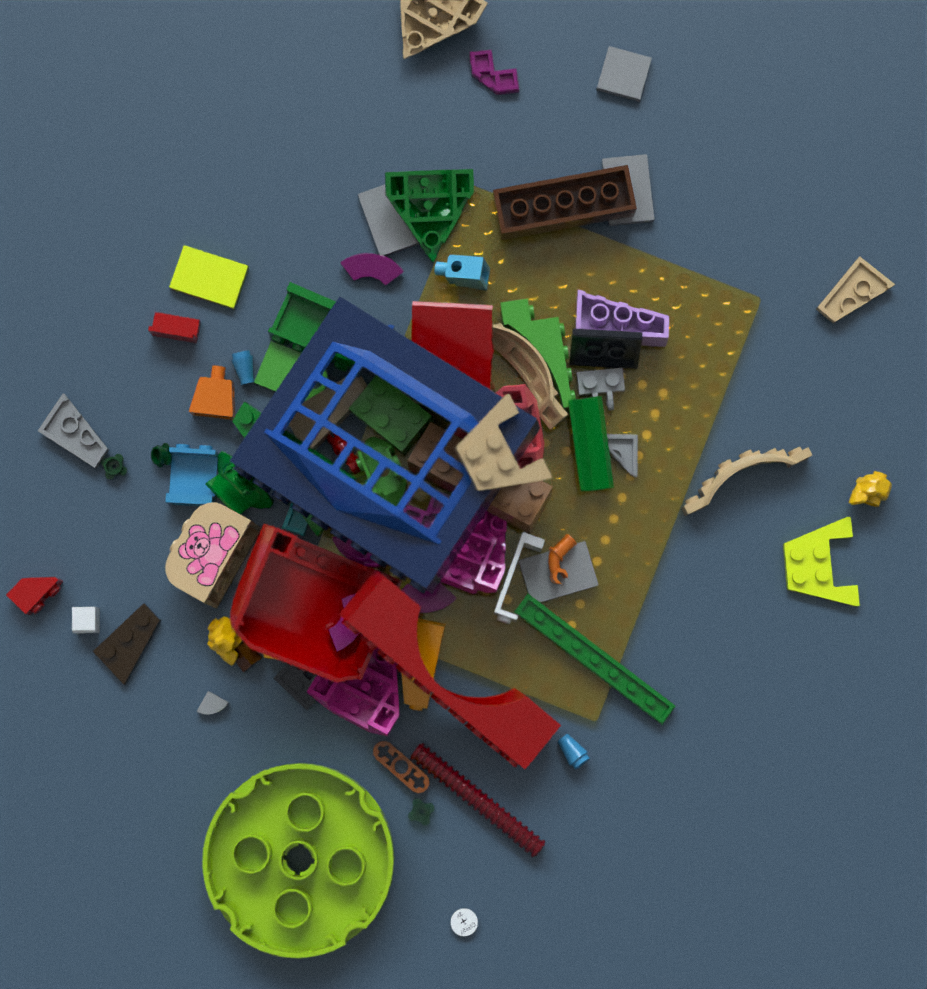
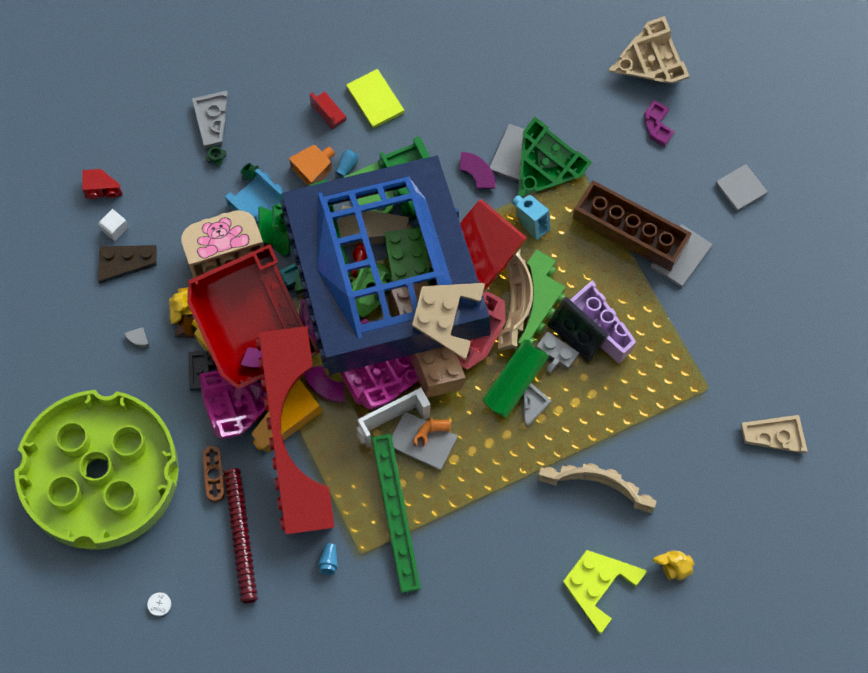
camera: 40 degrees right, 15 degrees down
(419, 805) = (201, 506): clear green plate -> none

